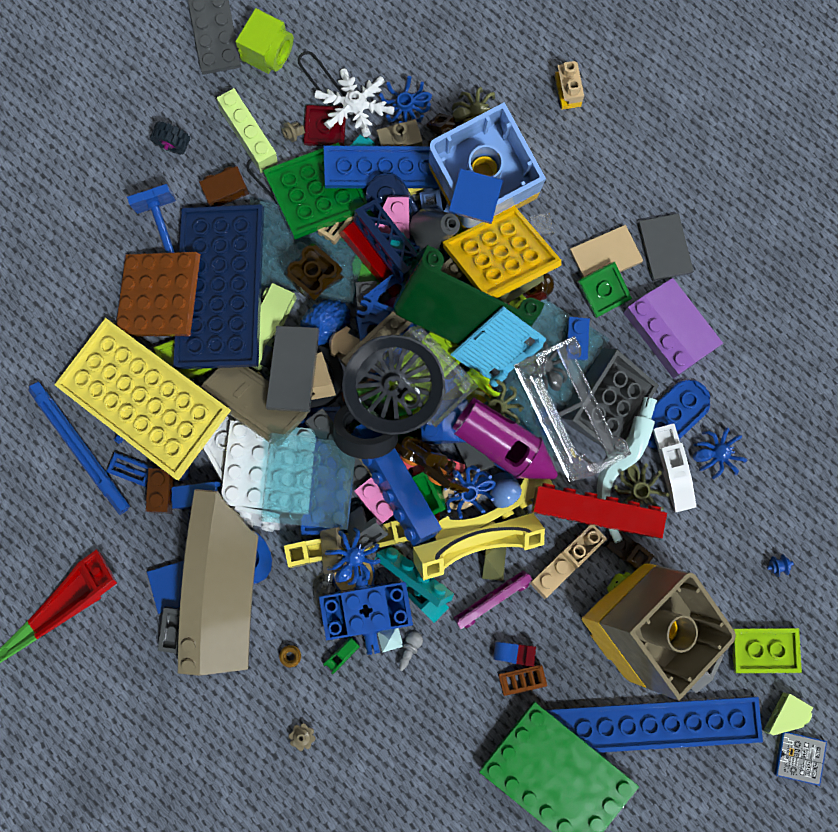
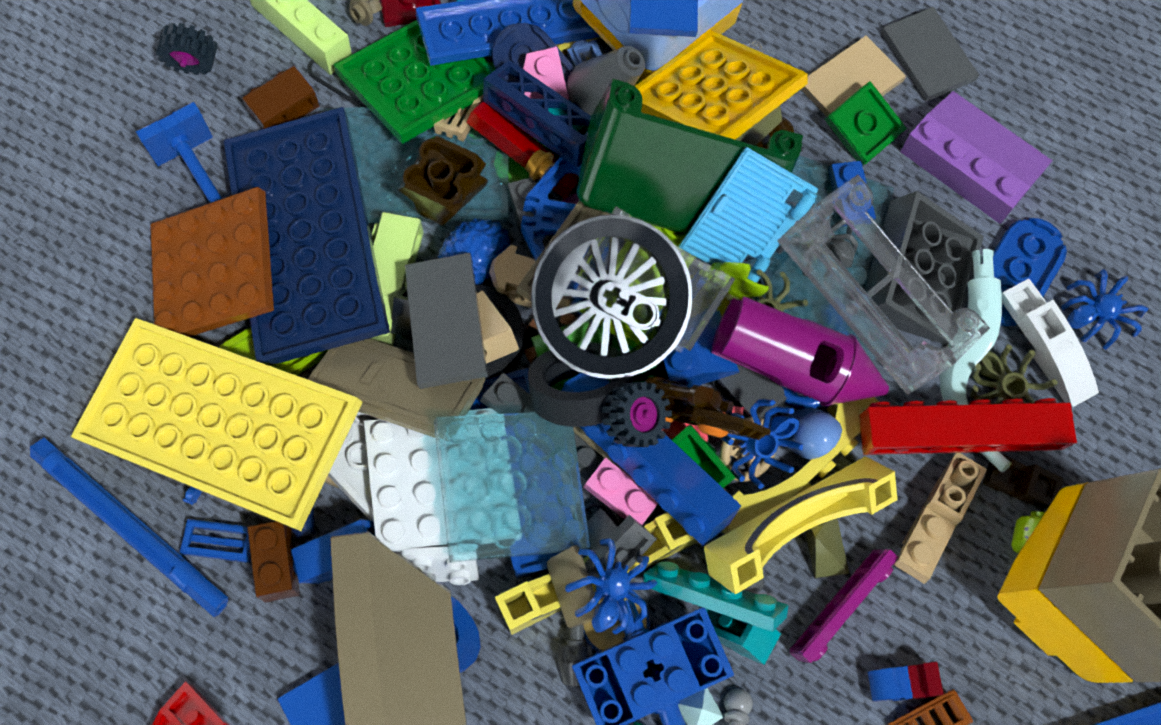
camera: 15 degrees left, 10 degrees down
(377, 276) = (539, 164): none -> pearl gold plate
(391, 460) = (637, 414): none -> black wheel

